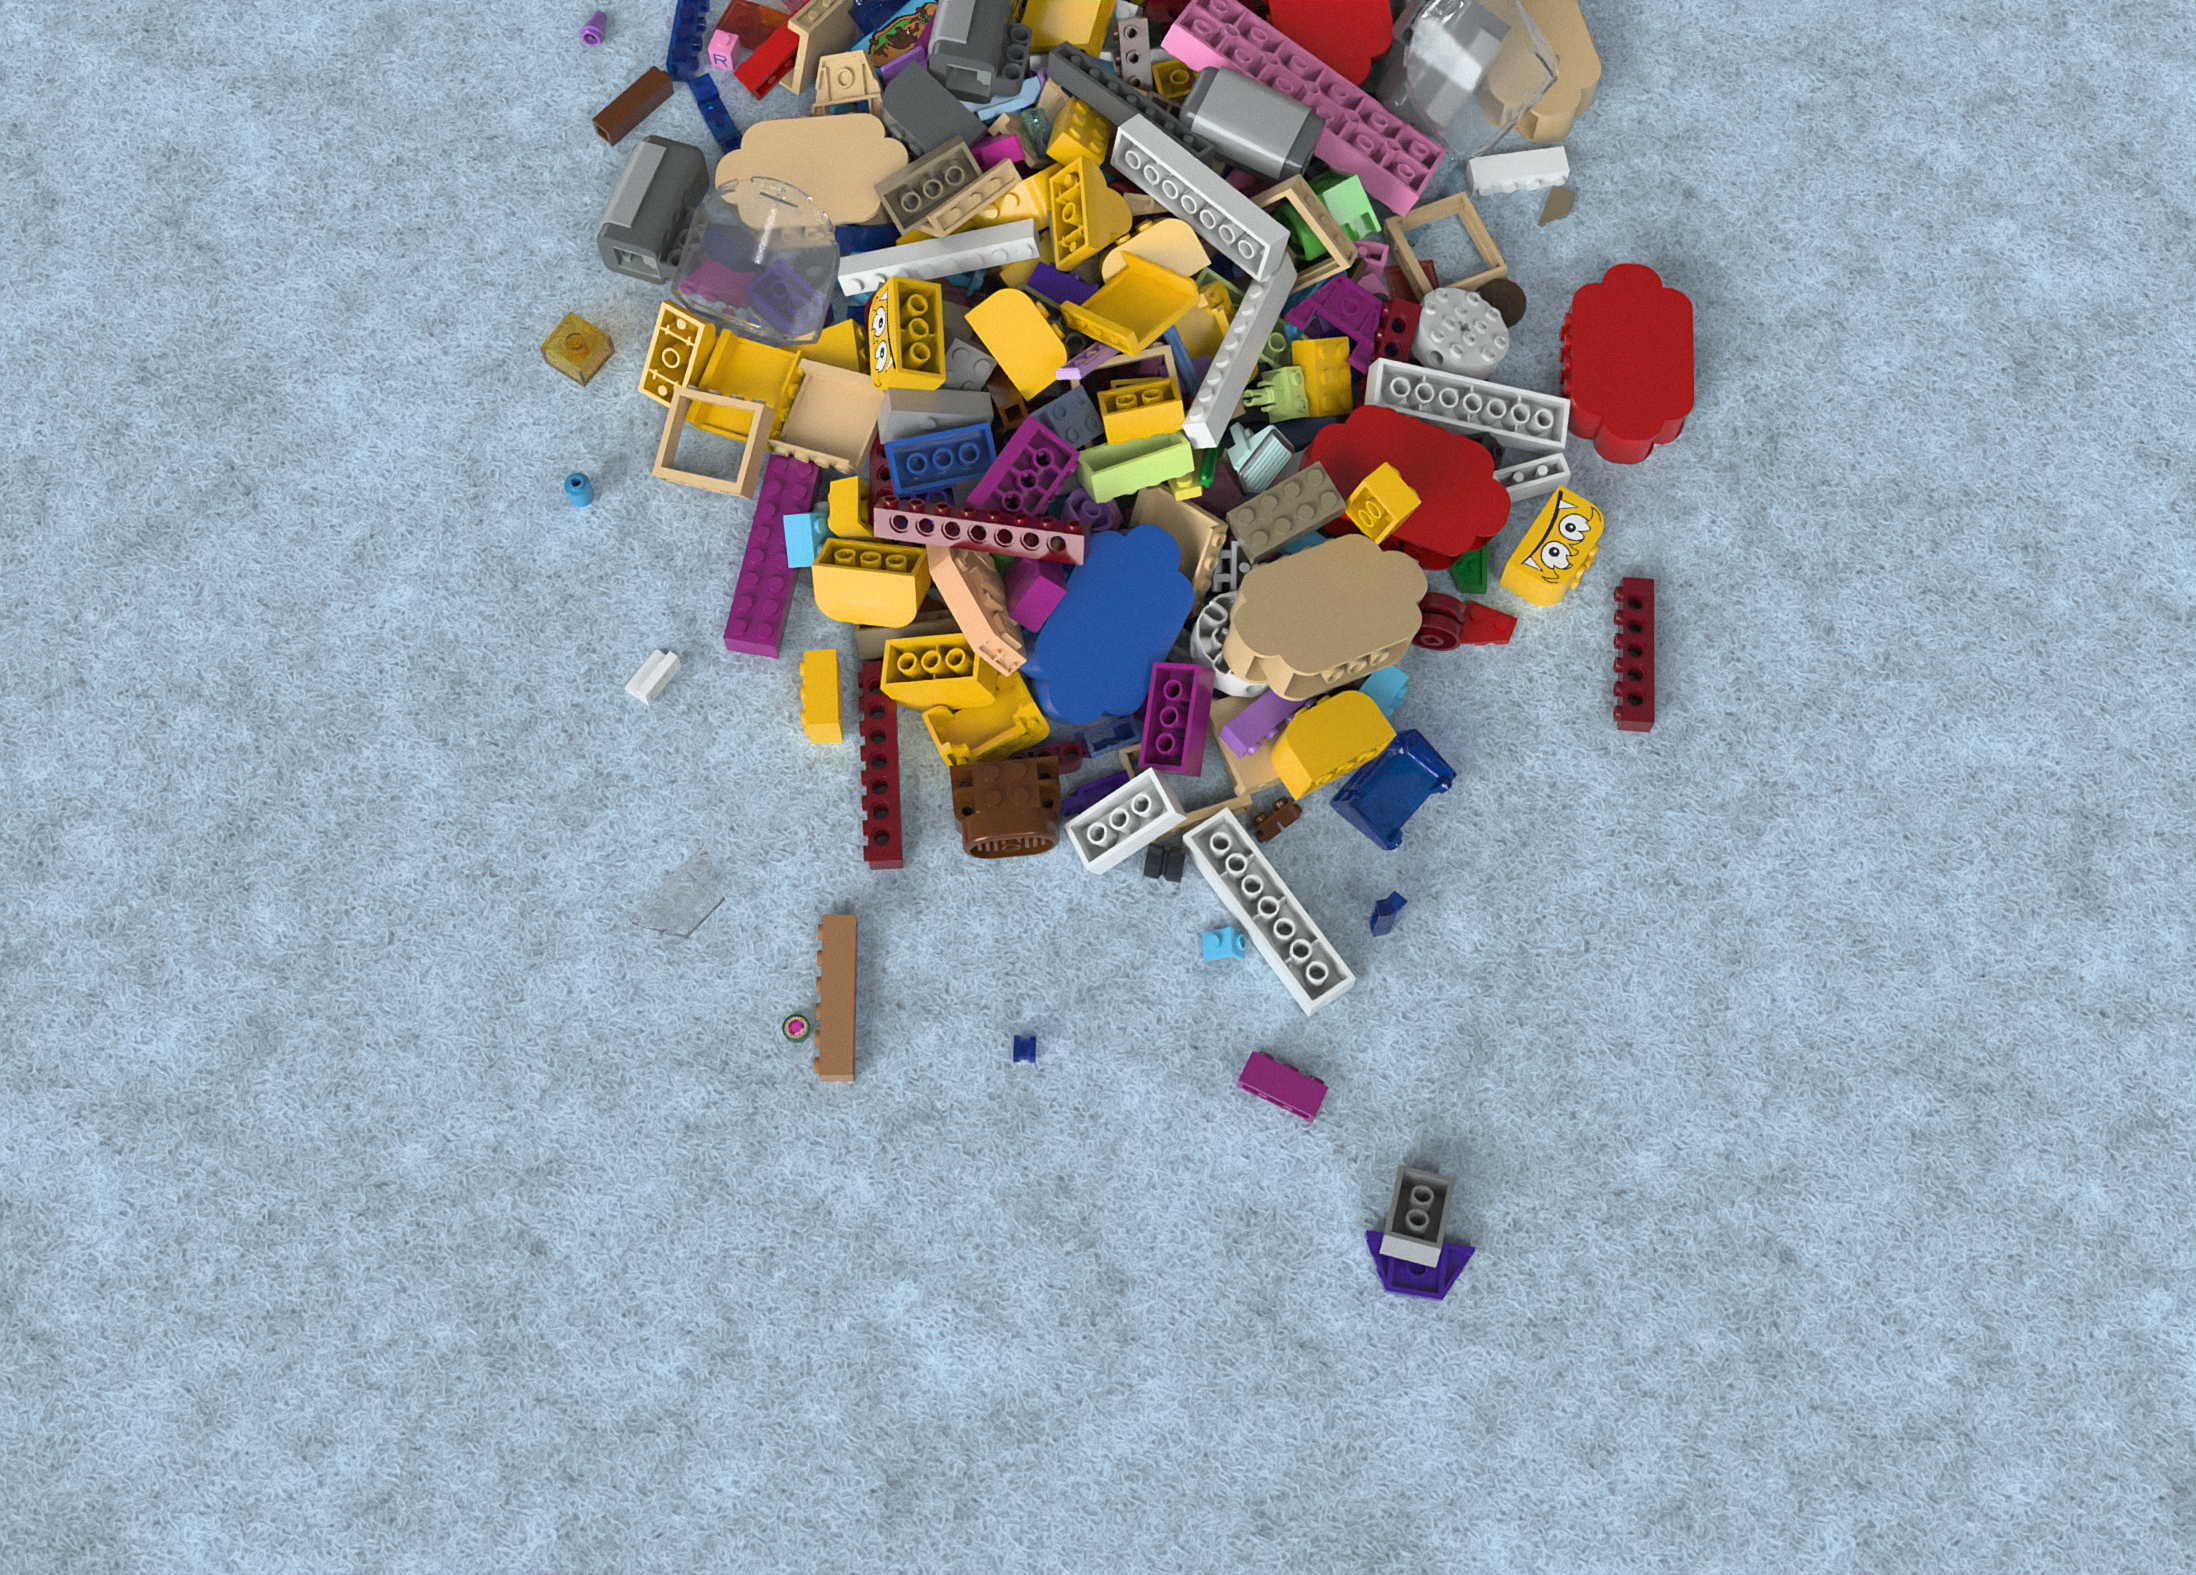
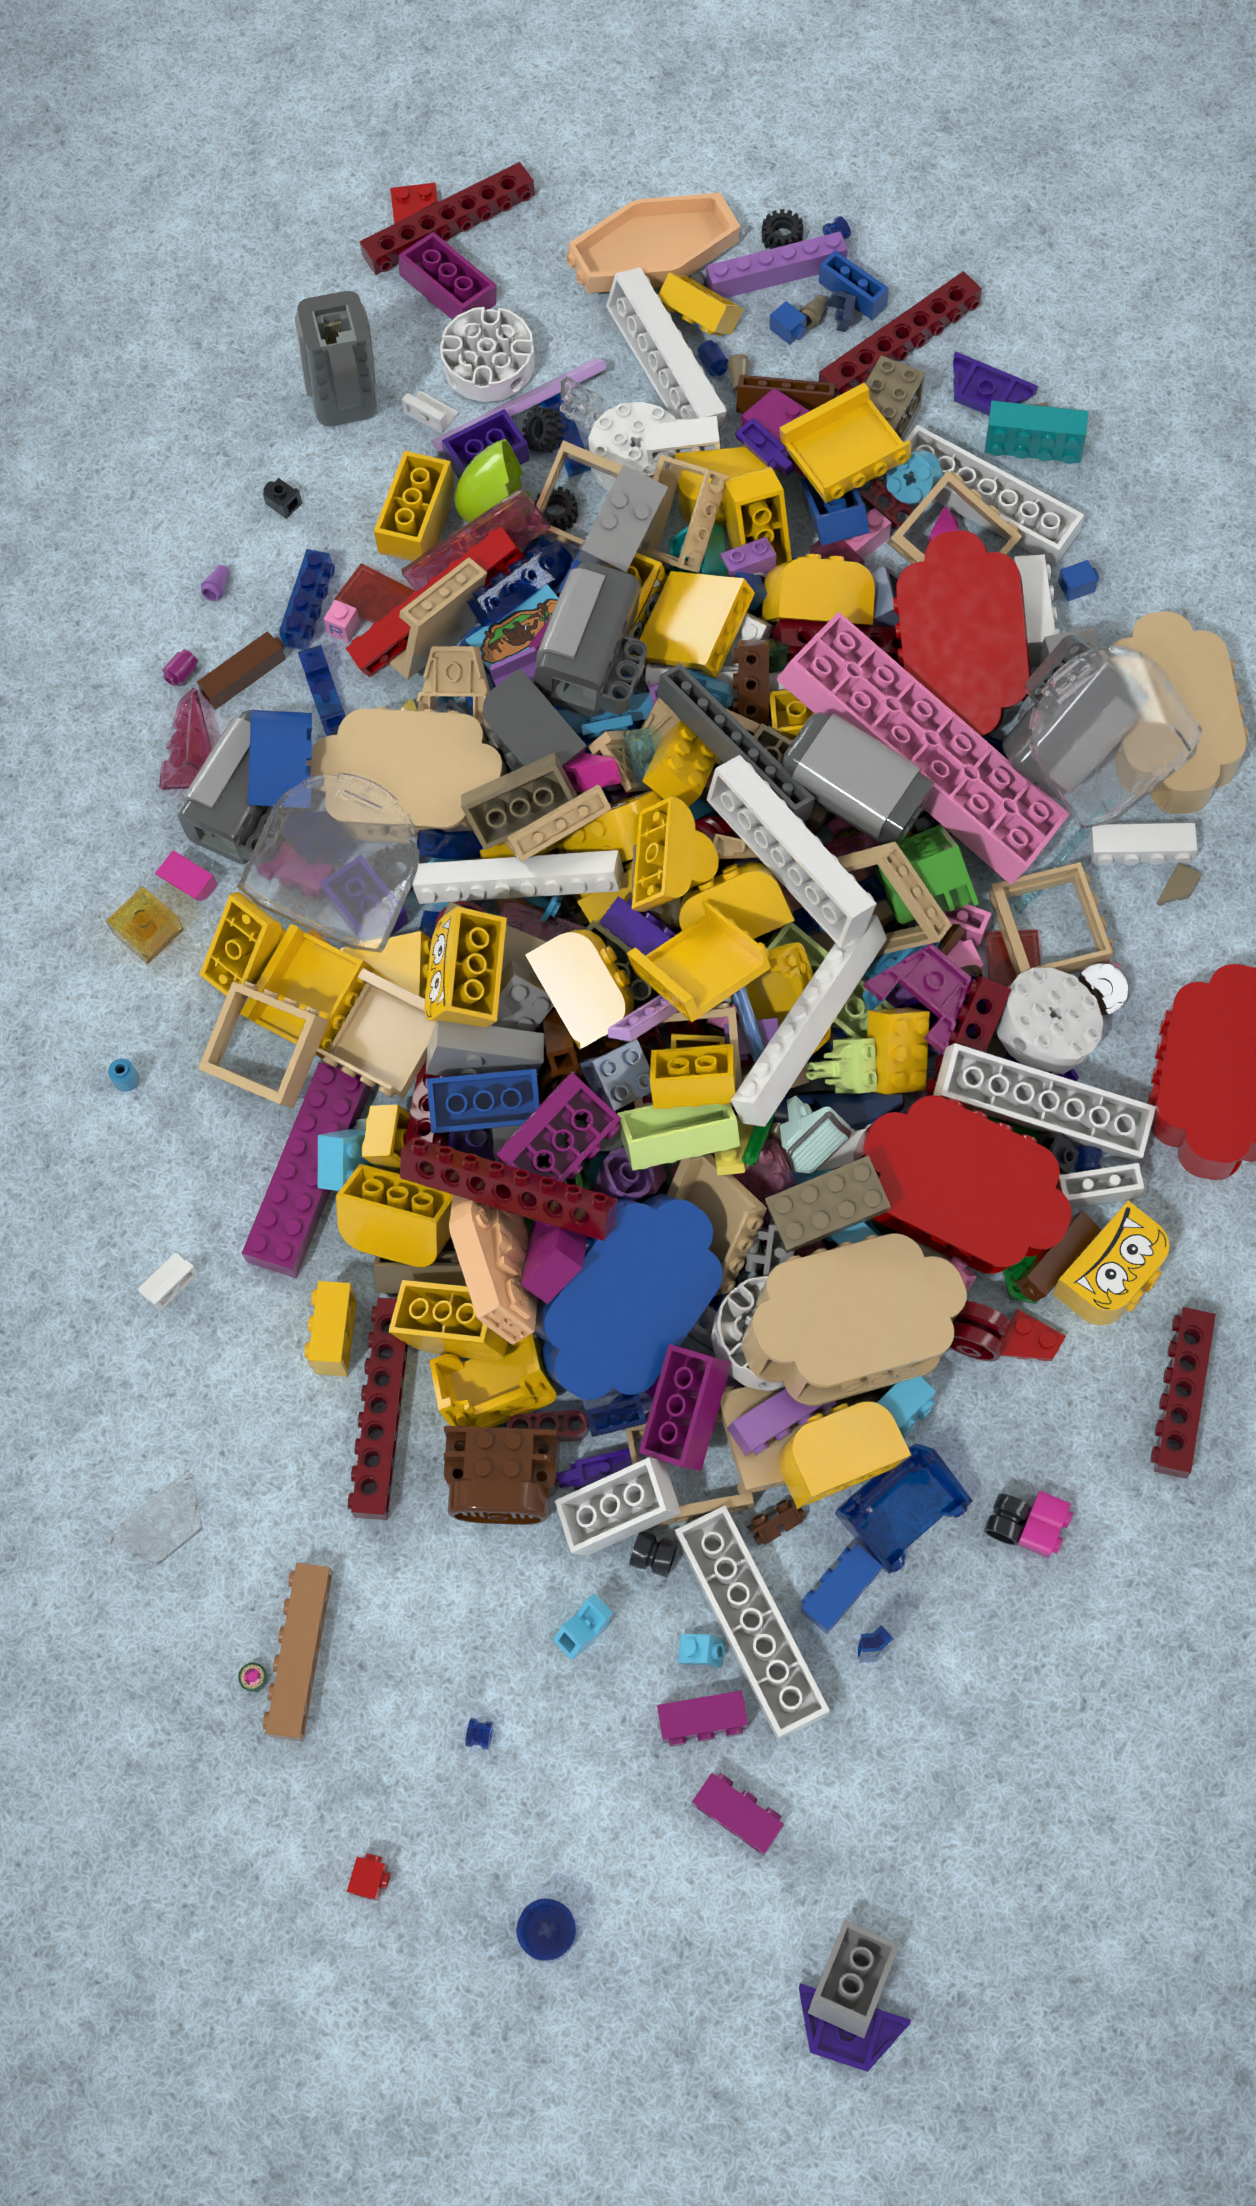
camera: 15 degrees right, 0 degrees up
(572, 109) = (180, 668): none -> magenta brick
(592, 180) = (188, 745): none -> clear pink wedge
(611, 300) = (187, 876): none -> dark pink brick
(687, 171) = (277, 754): none -> blue panel
(940, 1194) = (369, 1877): none -> red brick
(1109, 937) = (584, 1627): none -> medium azure brick
(1120, 1200) = (531, 1924): none -> clear blue brick
(1235, 1004) = (702, 1718): none -> magenta brick
(1345, 870) = (840, 1588): none -> blue brick
(1381, 503) = (927, 1209): yellow brick -> none
(1491, 788) = (1008, 1516): none -> black wheel
(1495, 554) = (1051, 1264): none -> reddish brown brick
(1513, 455) = (1088, 1159): none -> clear blue wheel
(1526, 788) = (1045, 1524): none -> dark pink brick

